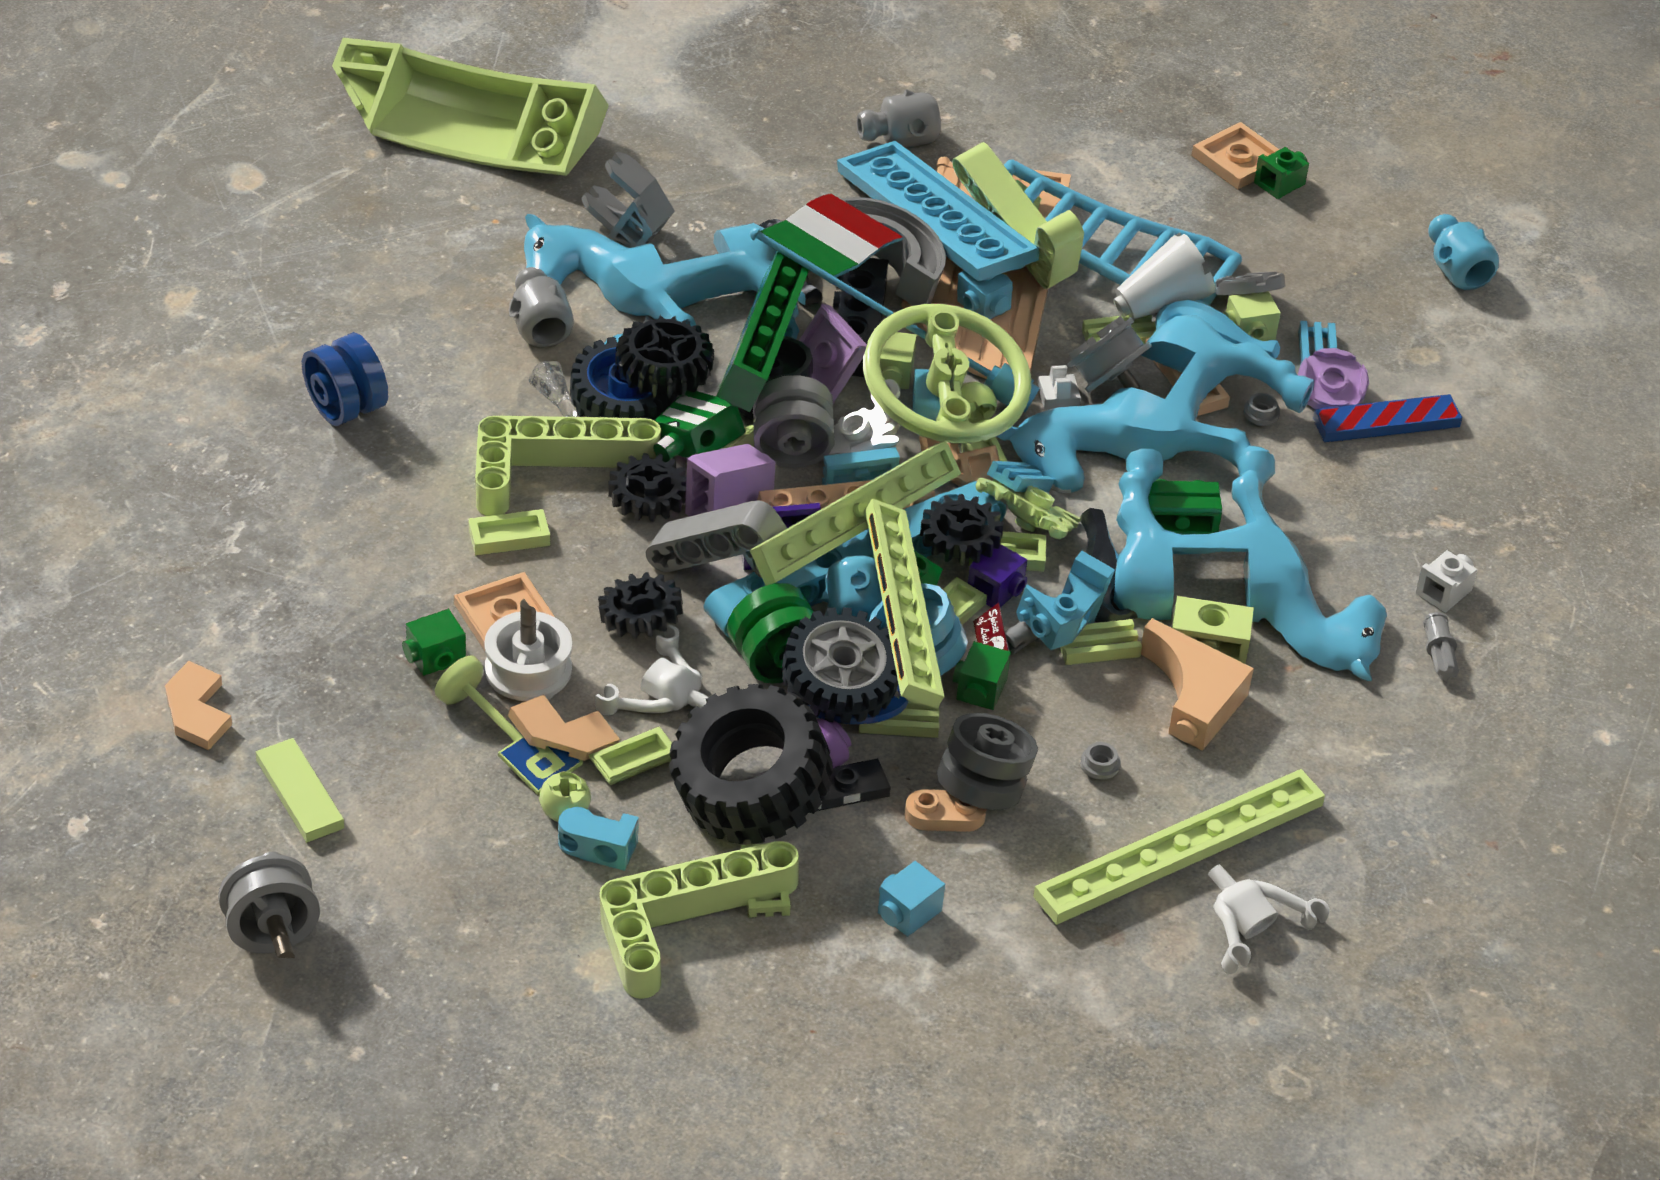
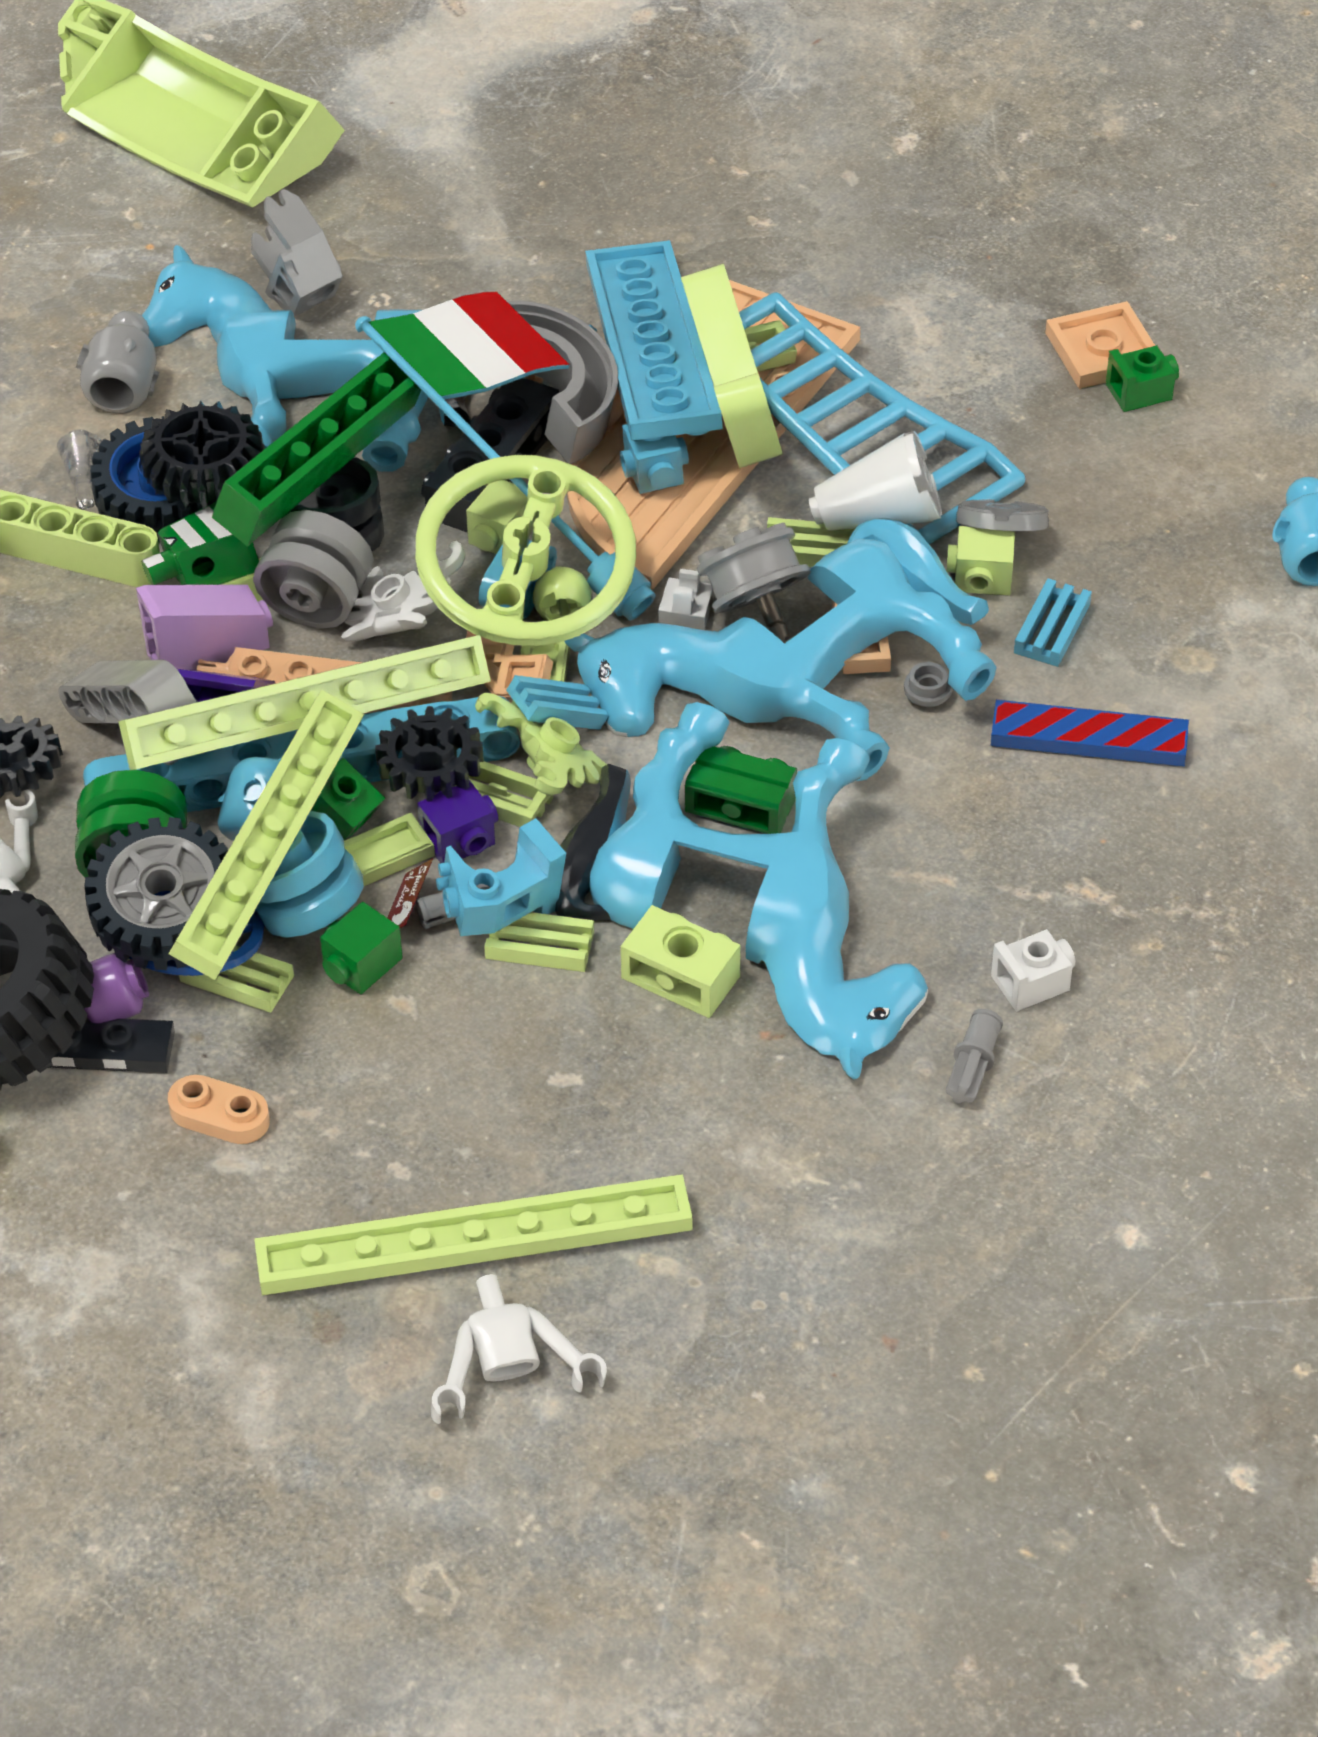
camera: 25 degrees right, 5 degrees up
(648, 487) = (104, 612): black gear -> none
(834, 349) = (408, 490): lavender tile -> none
(859, 465) = (368, 642): medium azure tile -> none
(904, 118) = (695, 217): light grey piece -> none
(910, 898) = (96, 1213): medium azure brick -> none
(987, 761) = (282, 1061): dark grey wheel -> none
(1100, 761) = (443, 1085): light grey plate -> none
(1205, 681) = (630, 1035): light nougat arch -> none
(1336, 377) = (1041, 665): lavender tile -> none

